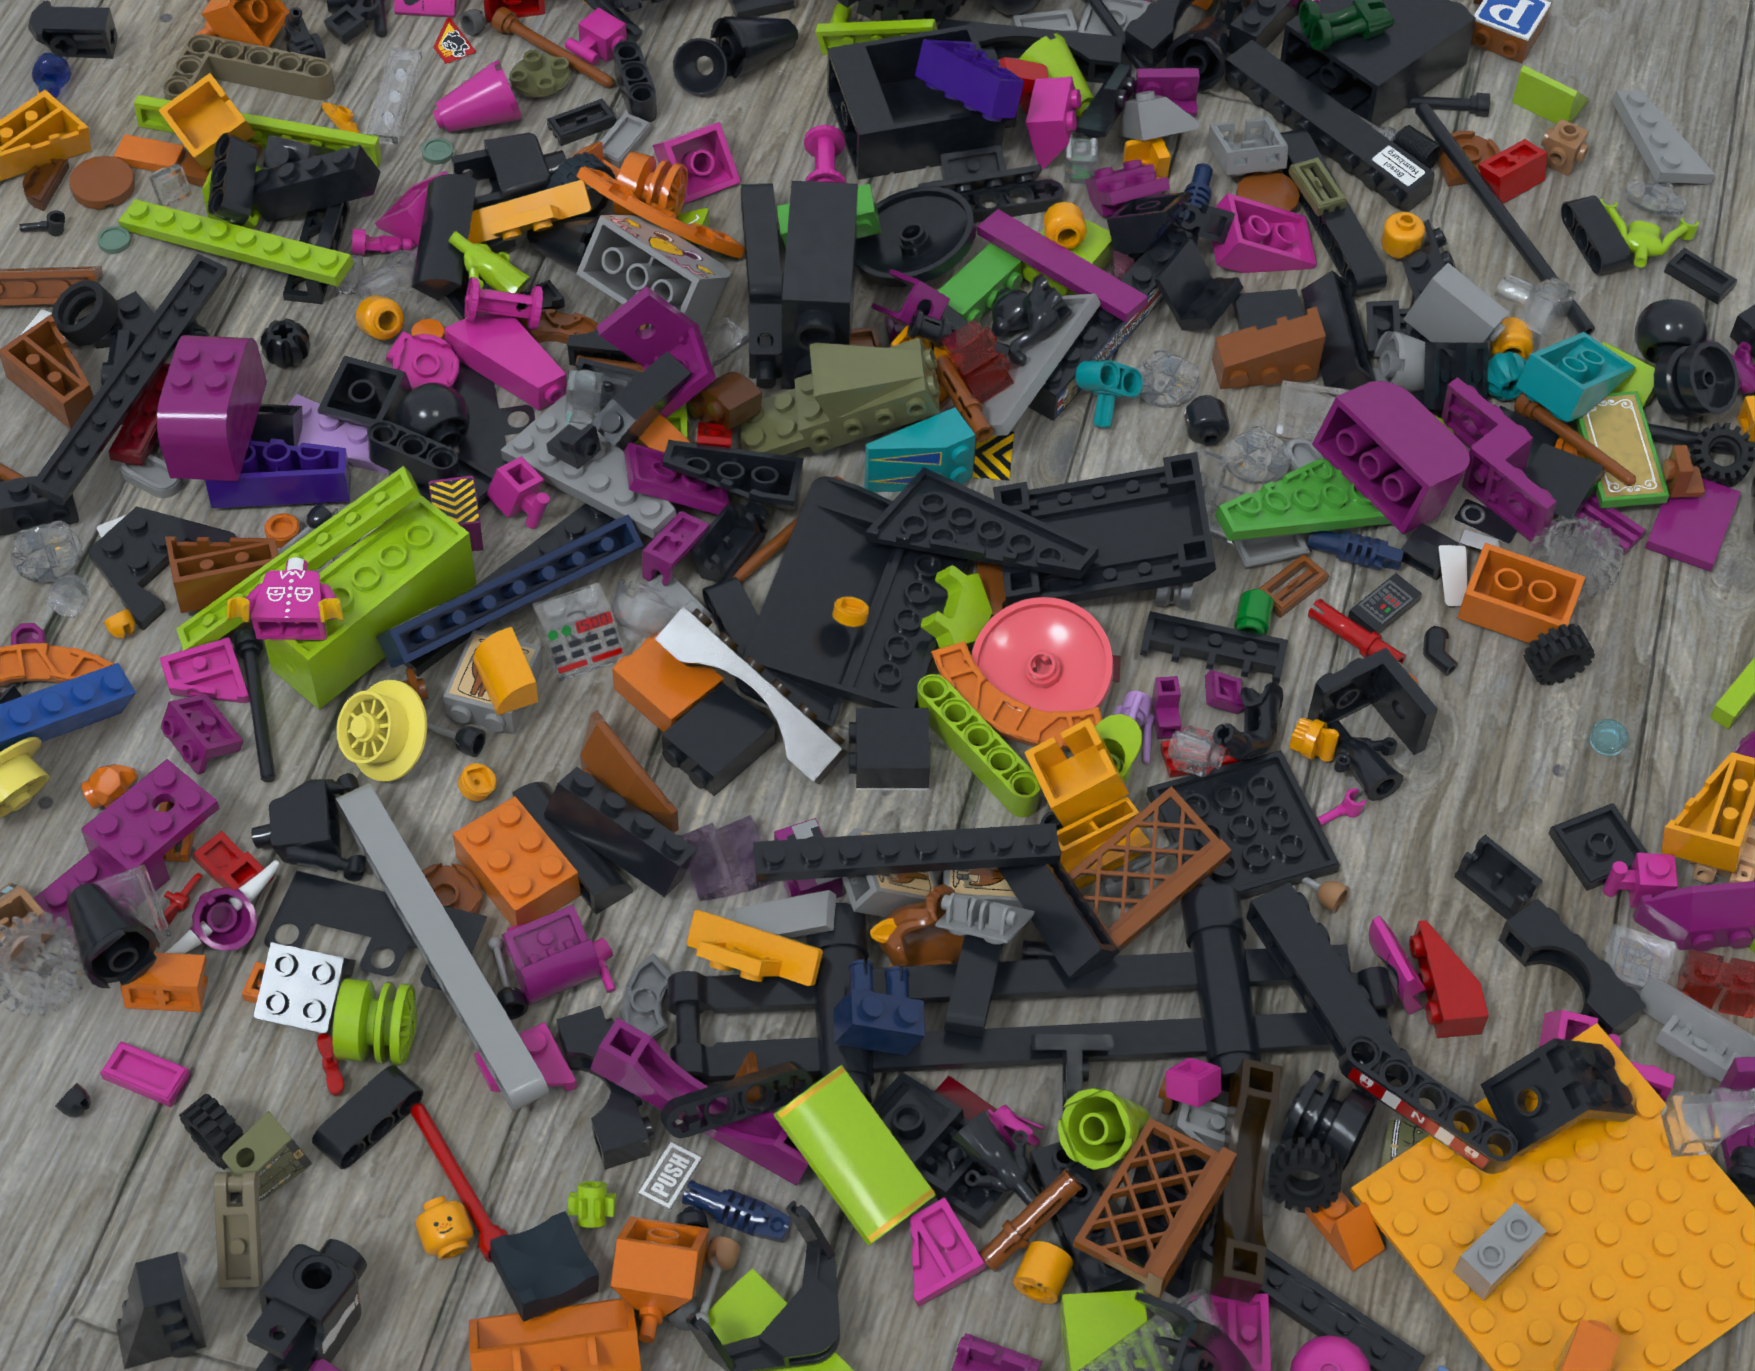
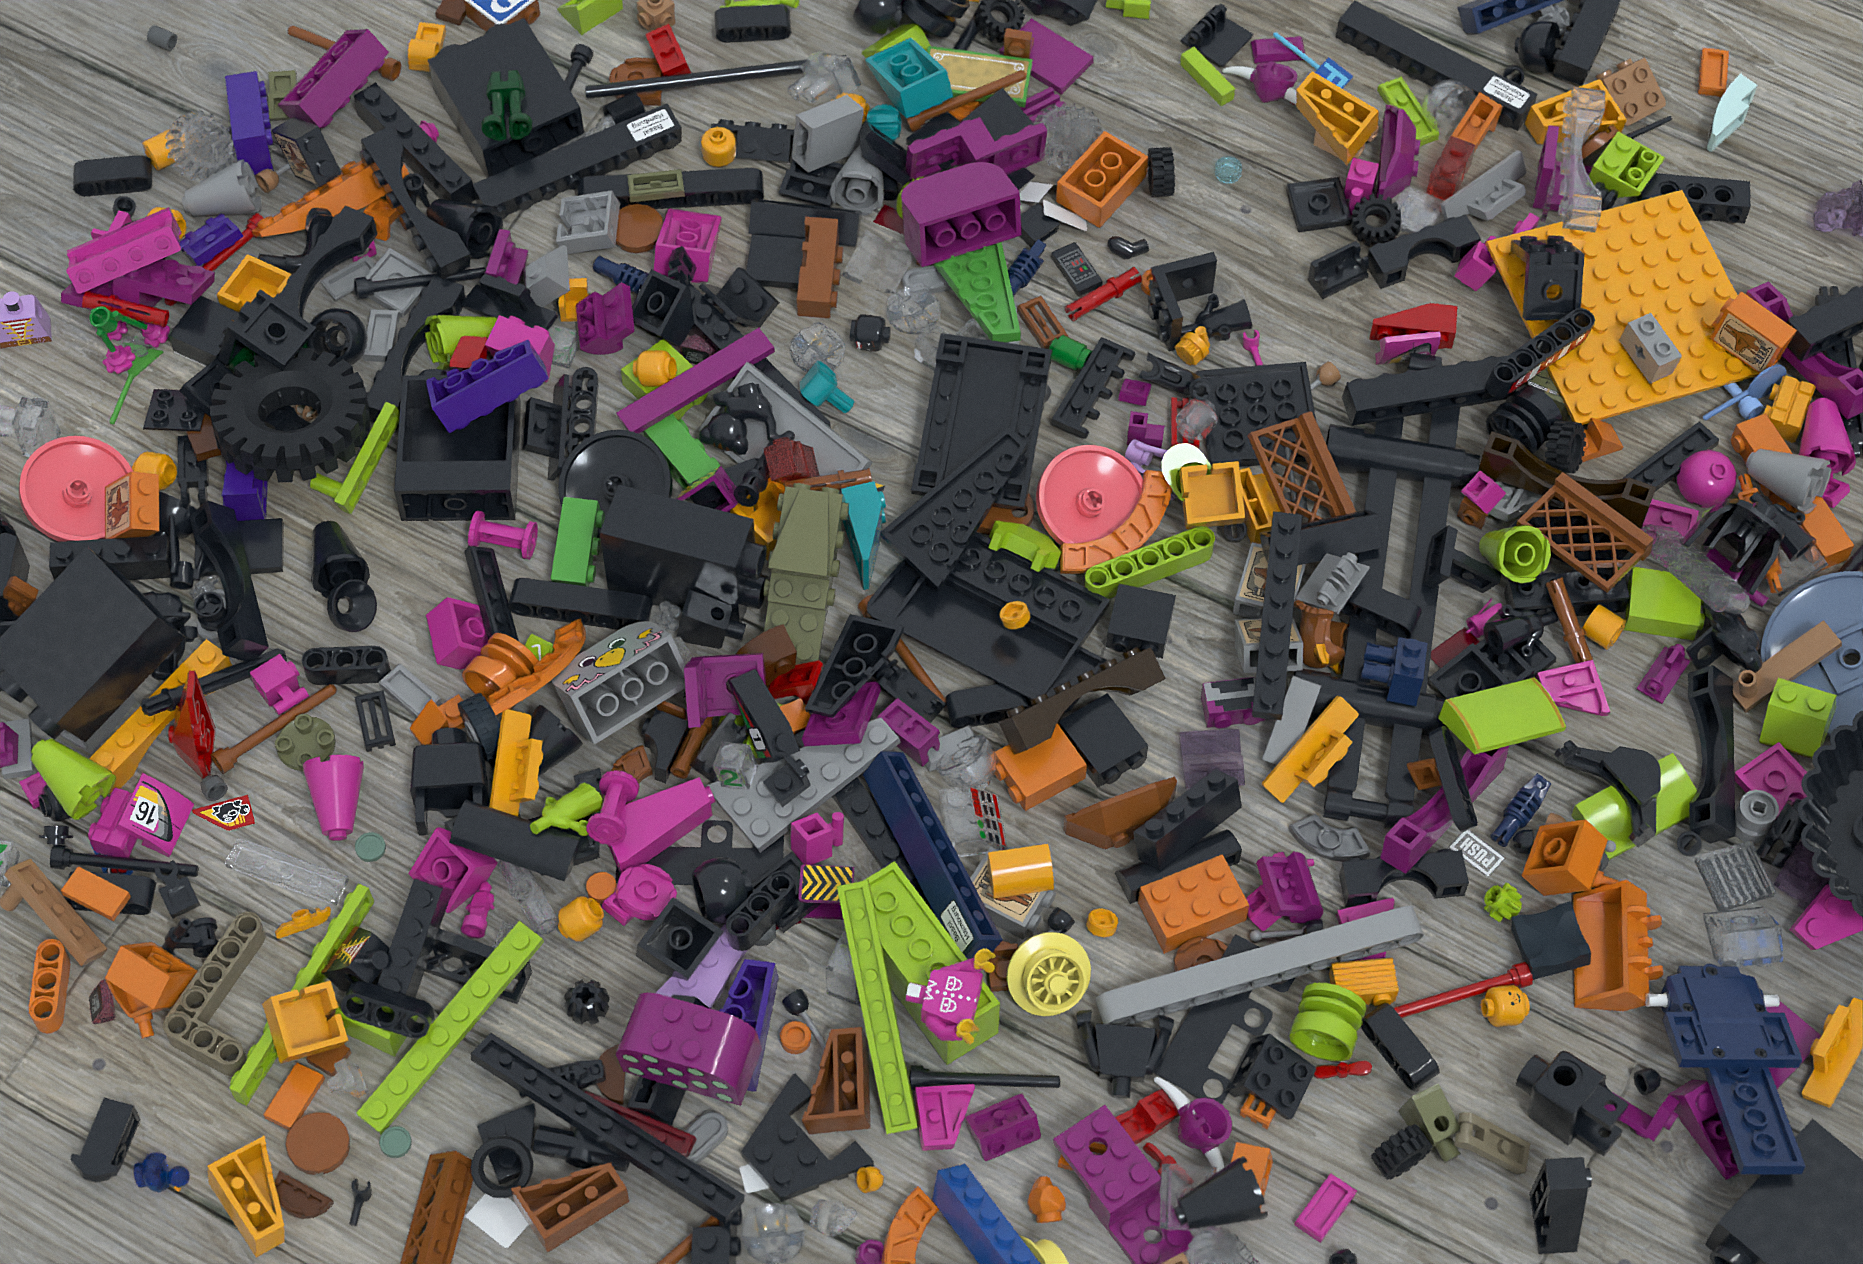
camera: 75 degrees left, 5 degrees up
(447, 1063) = (1370, 979): none -> light orange brick
(756, 169) = (490, 591): none -> black tile
(1602, 892) = (1376, 206): none -> black tyre

